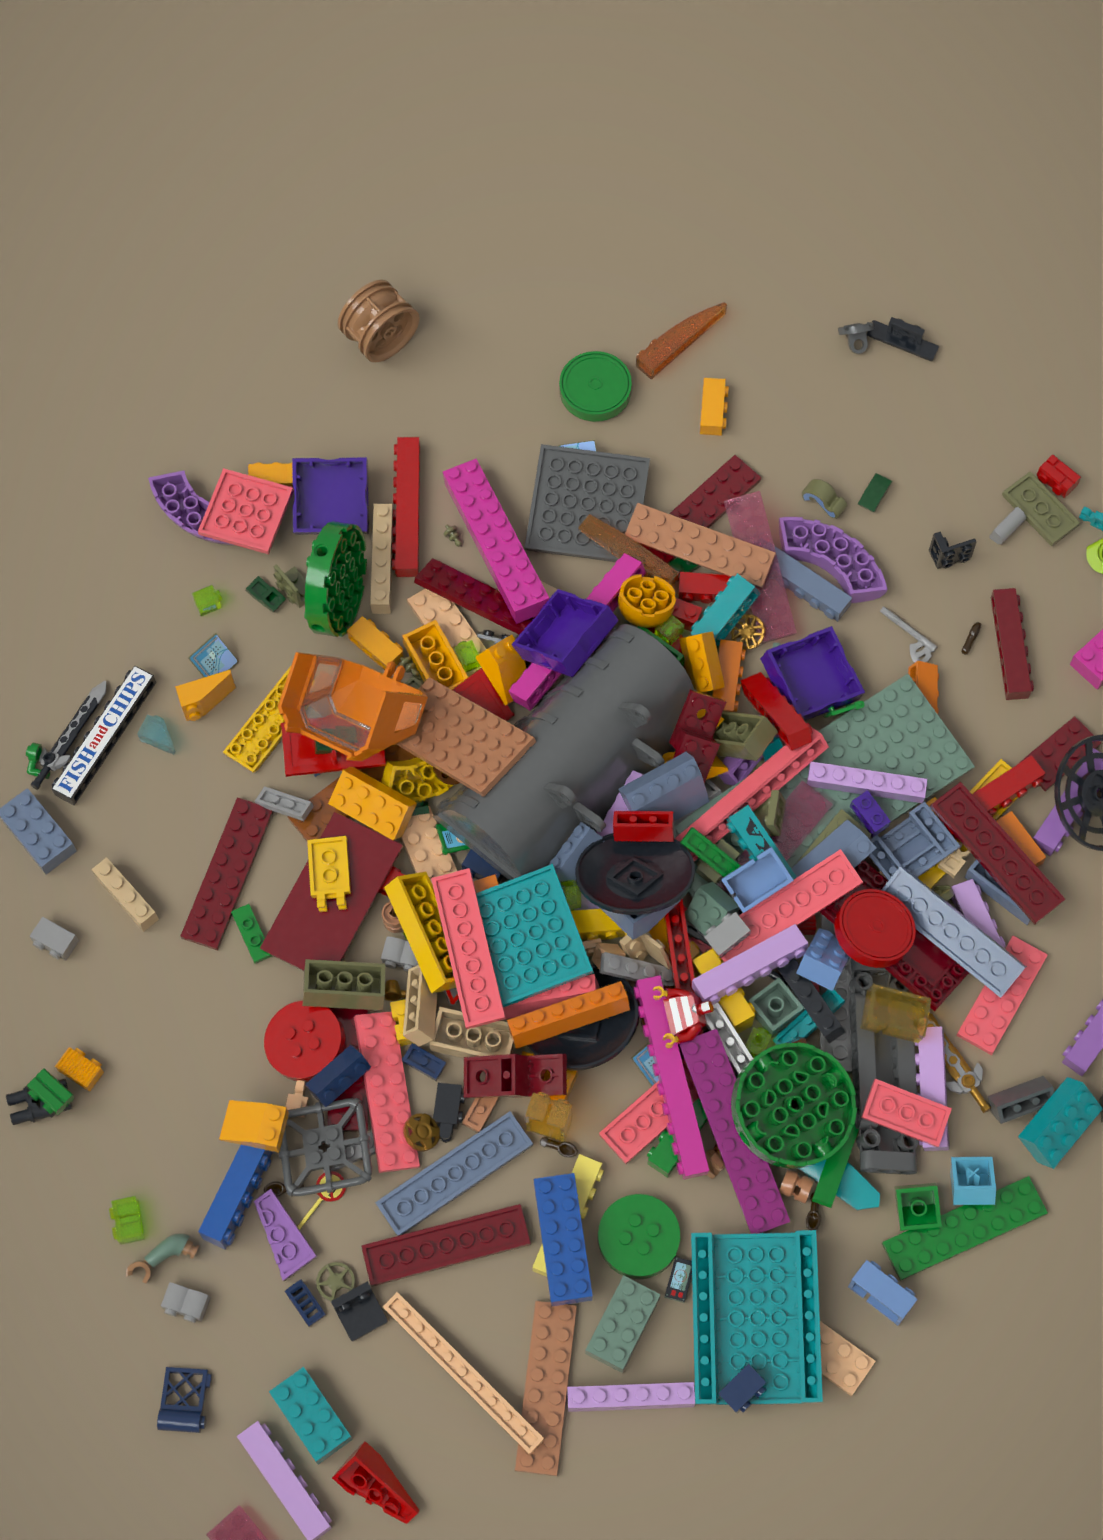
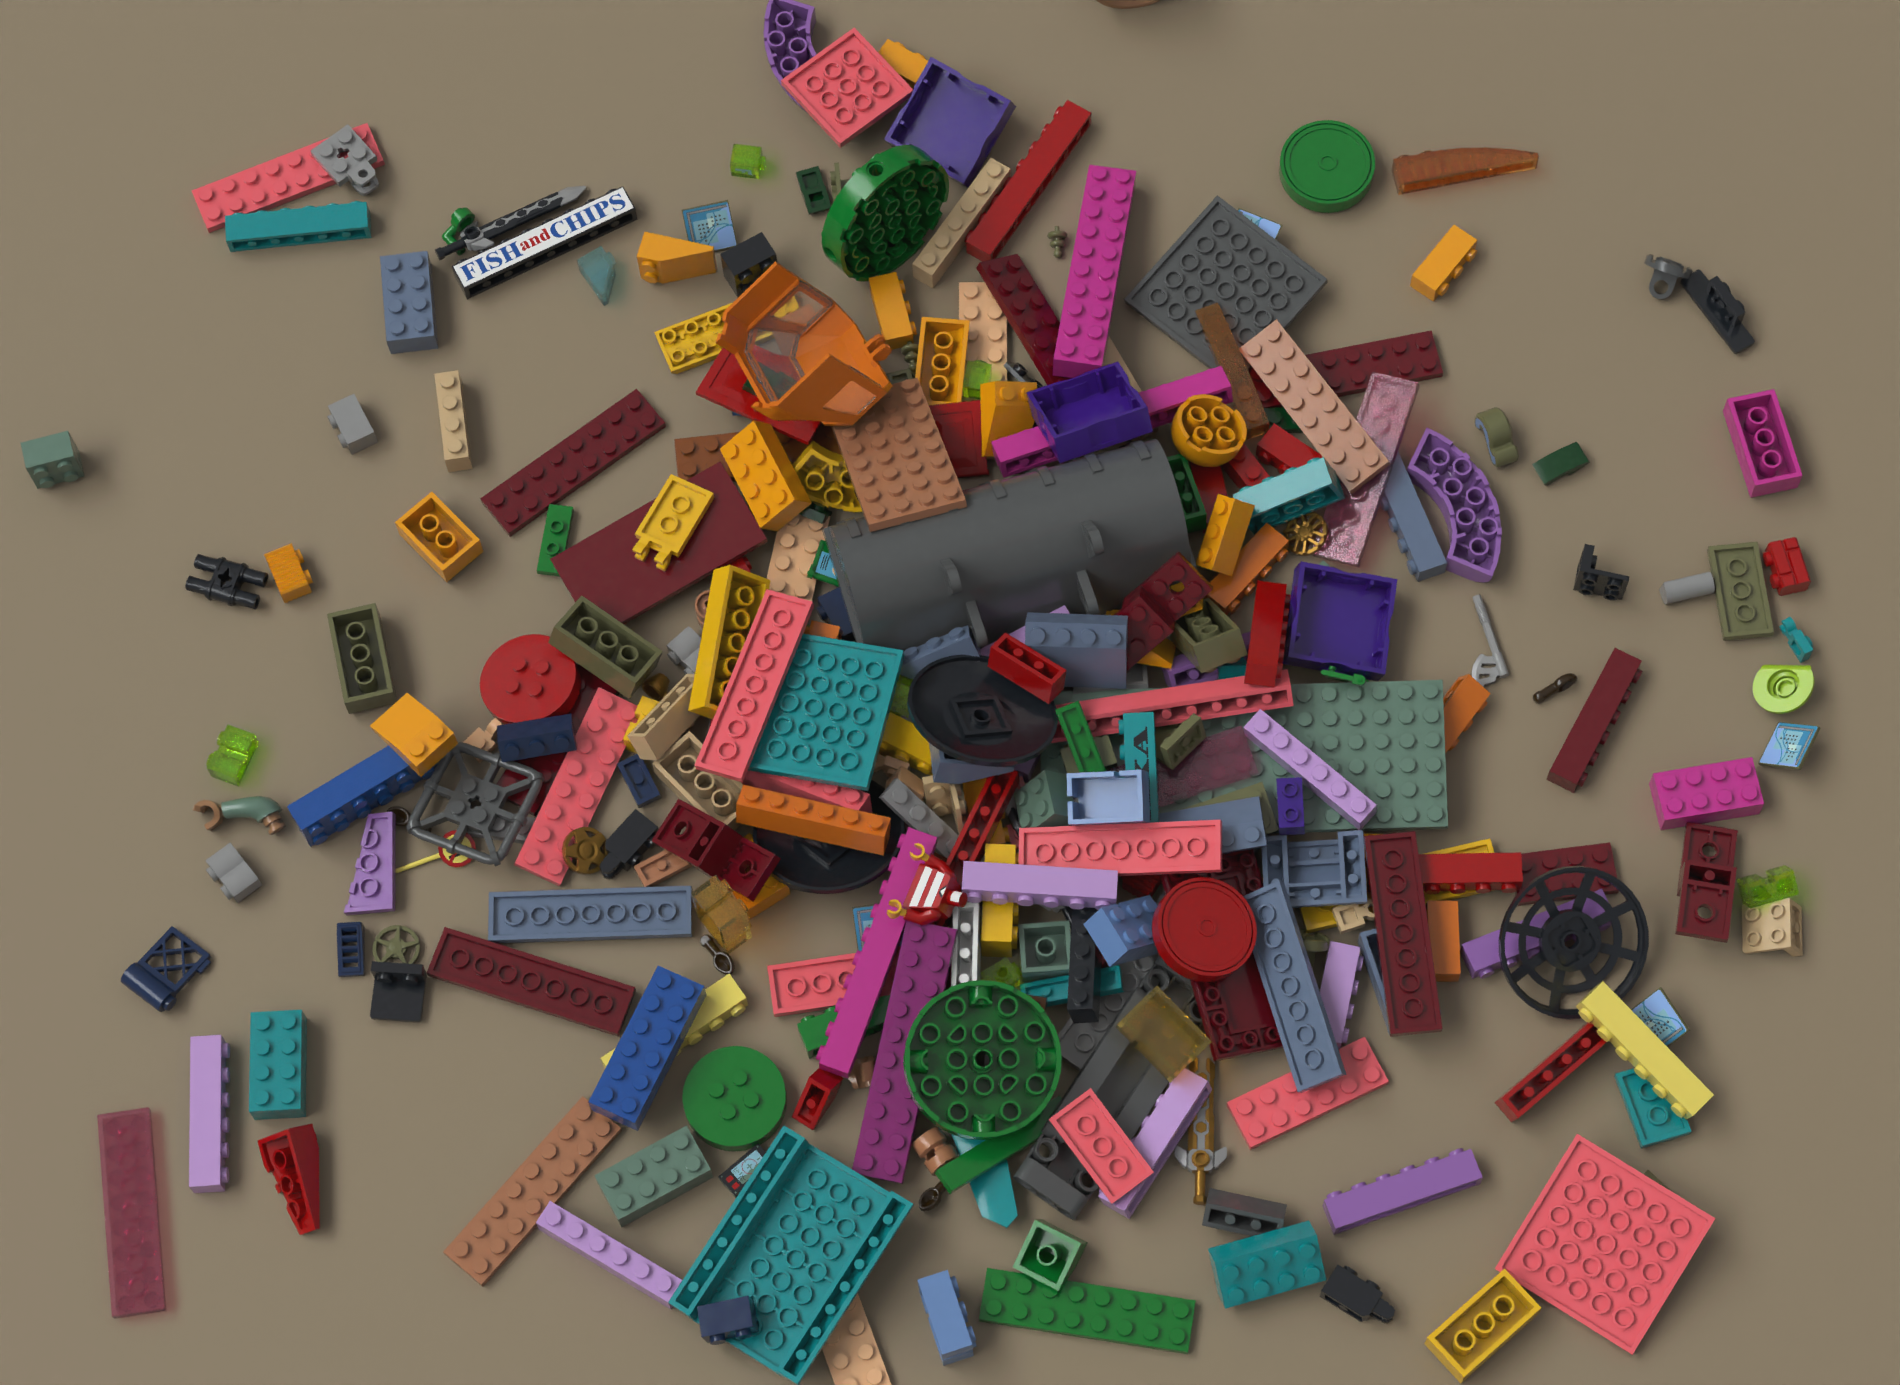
camera: 35 degrees right, 0 degrees up
(50, 1092) = (240, 576): green brick -> none
(171, 979) = (439, 536): none -> light orange brick
(175, 1096) = (362, 658): none -> olive brick
(259, 668) = (747, 262): none -> black brick
(284, 803) = (678, 423): light grey plate -> none
(464, 1374) = (457, 1121): light nougat plate -> none
(670, 630) = (1212, 480): clear neon green brick -> none
(693, 1200) = (817, 1097): none -> red slope
(727, 934) = (1038, 837): light grey brick -> none
(973, 1181) = (1126, 1264): medium azure brick -> none
(990, 407) = (1762, 443): none -> dark pink brick

